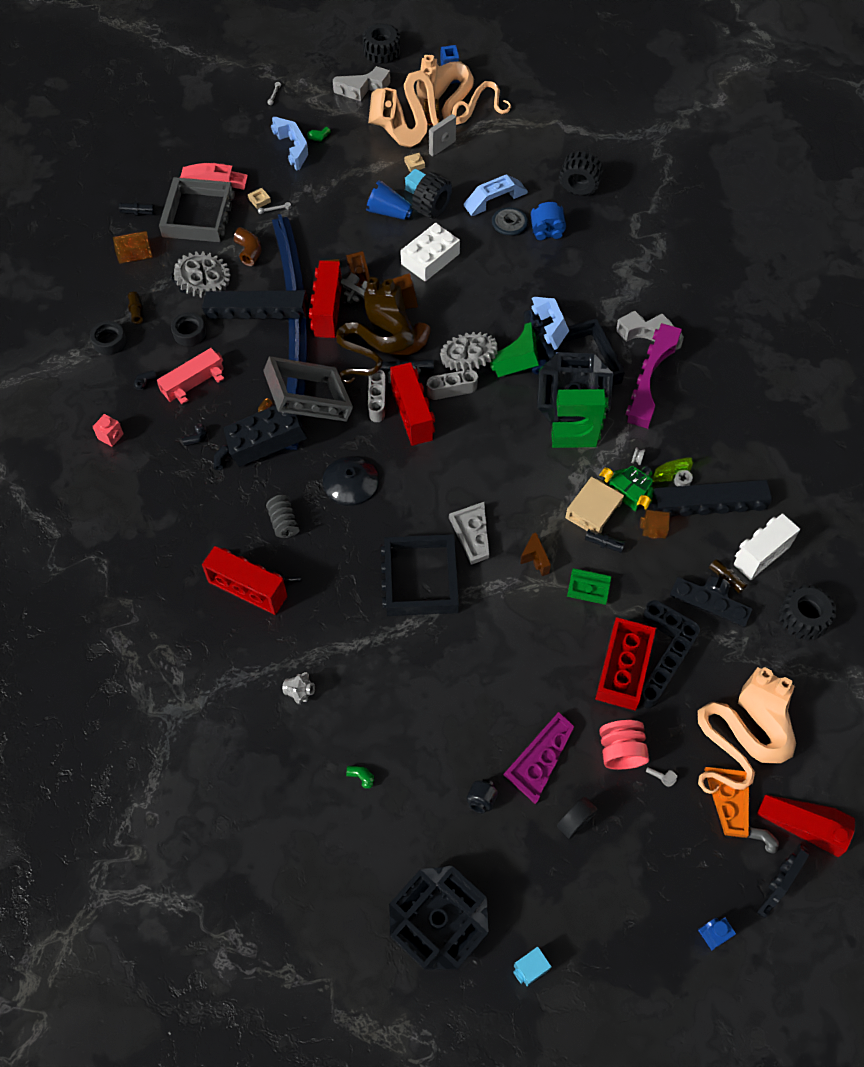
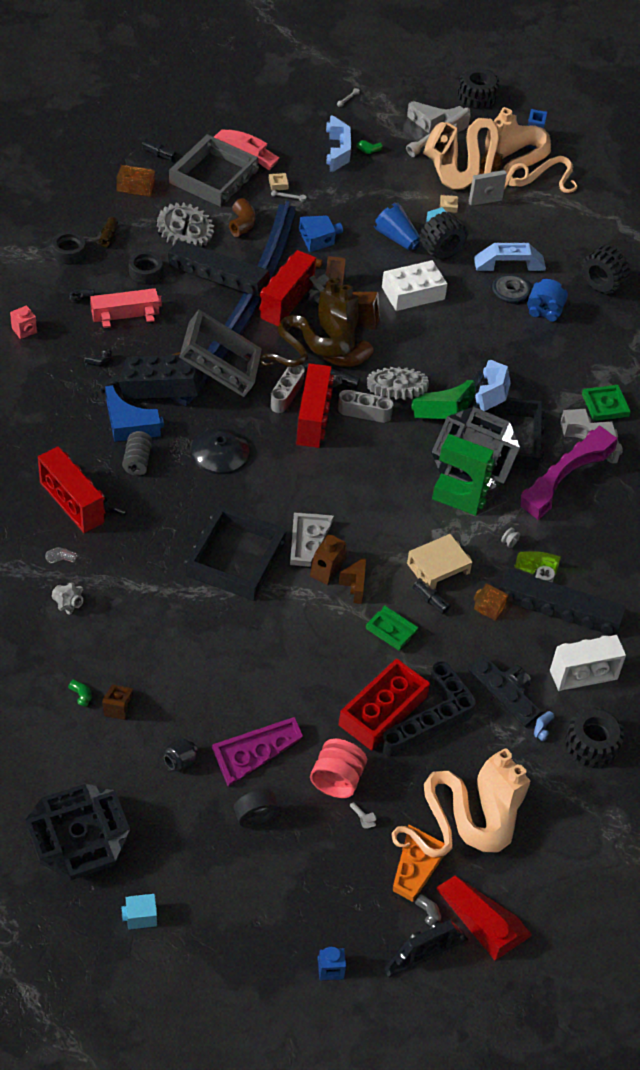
camera: 20 degrees right, 10 degrees down
(256, 488) = (129, 419): none -> blue arch
(266, 647) = (58, 554): none -> clear arm
(320, 233) = (318, 232): none -> blue torso
(358, 120) = (415, 147): none -> light grey piece
(398, 768) = (116, 701): none -> reddish brown slope
(503, 542) = (333, 553): none -> reddish brown torso
(633, 484) = (487, 558): torso -> none
(644, 296) = (606, 402): none -> green plate
(729, 575) = (536, 675): dark brown pin -> none
(757, 613) = (541, 724): none -> medium blue arm

